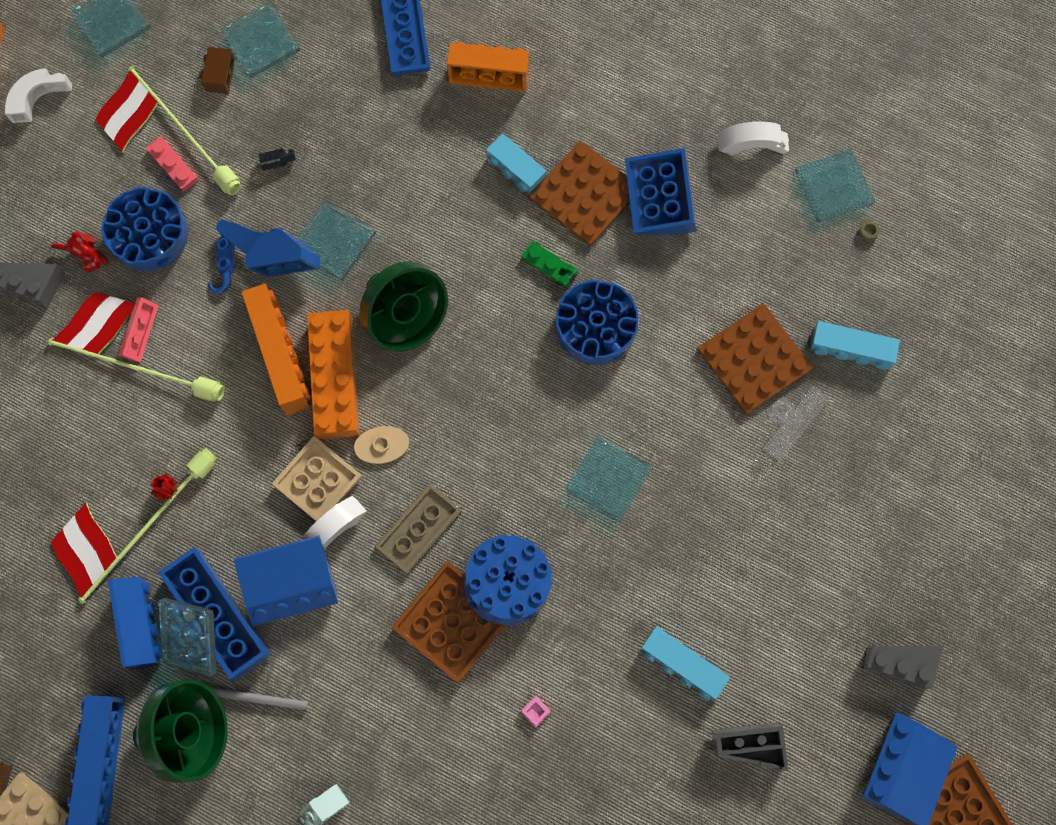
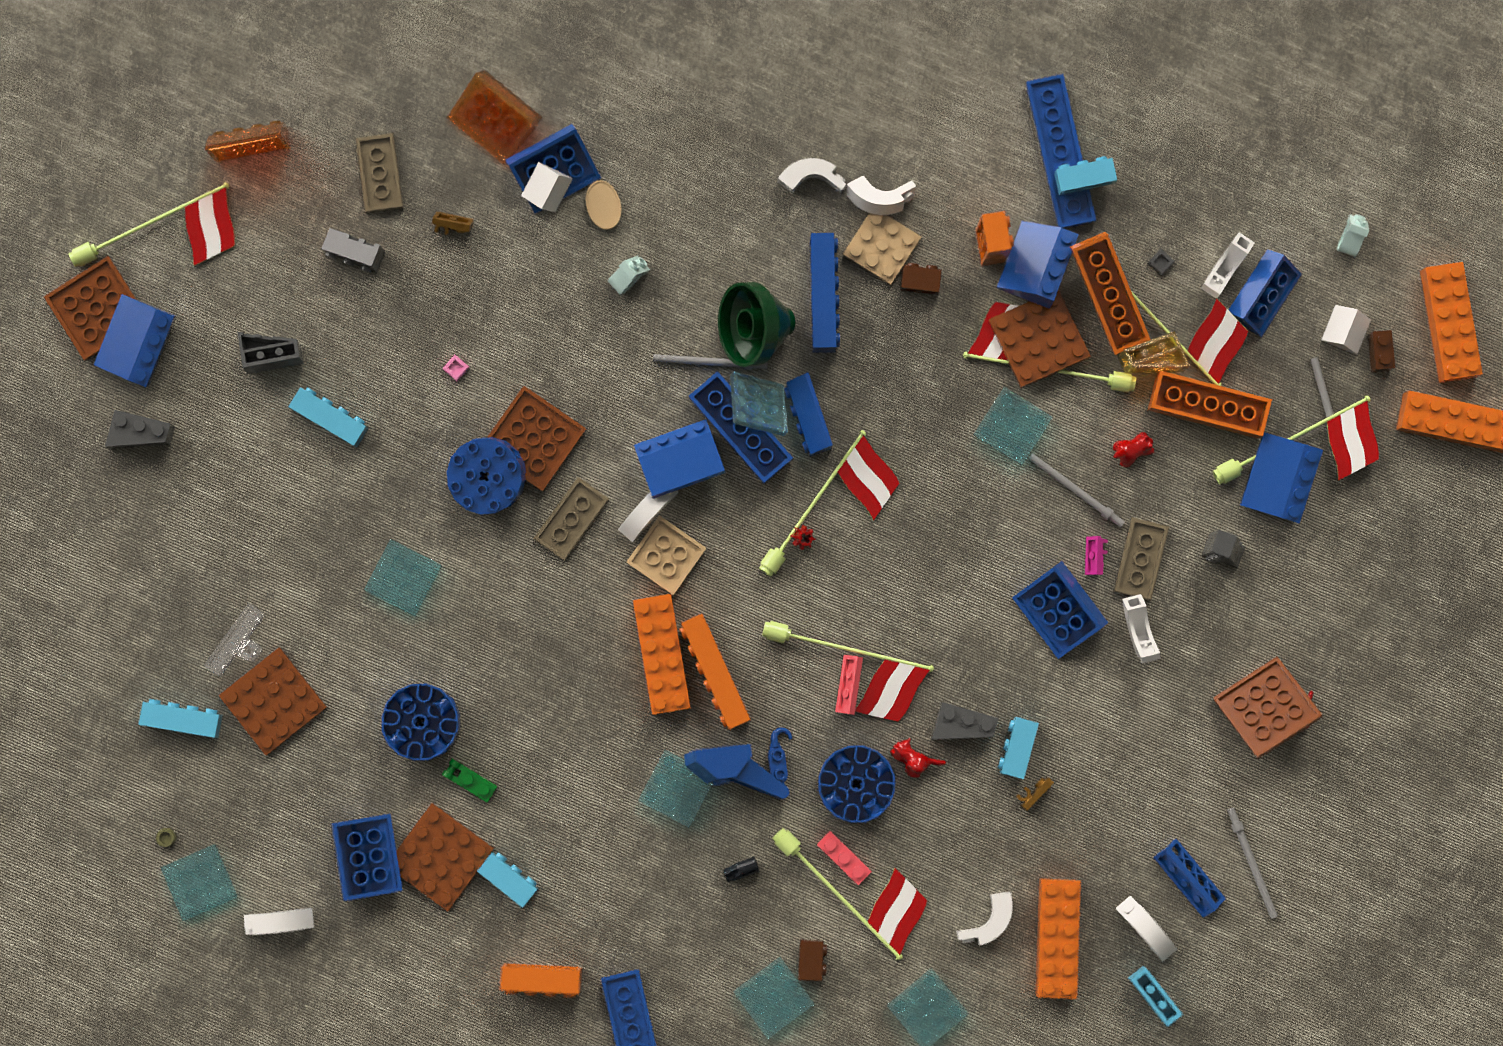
camera: 175 degrees right, 10 degrees up
(381, 445) = (612, 593): tan piece -> none
(403, 306) = (602, 720): dark green cone -> none

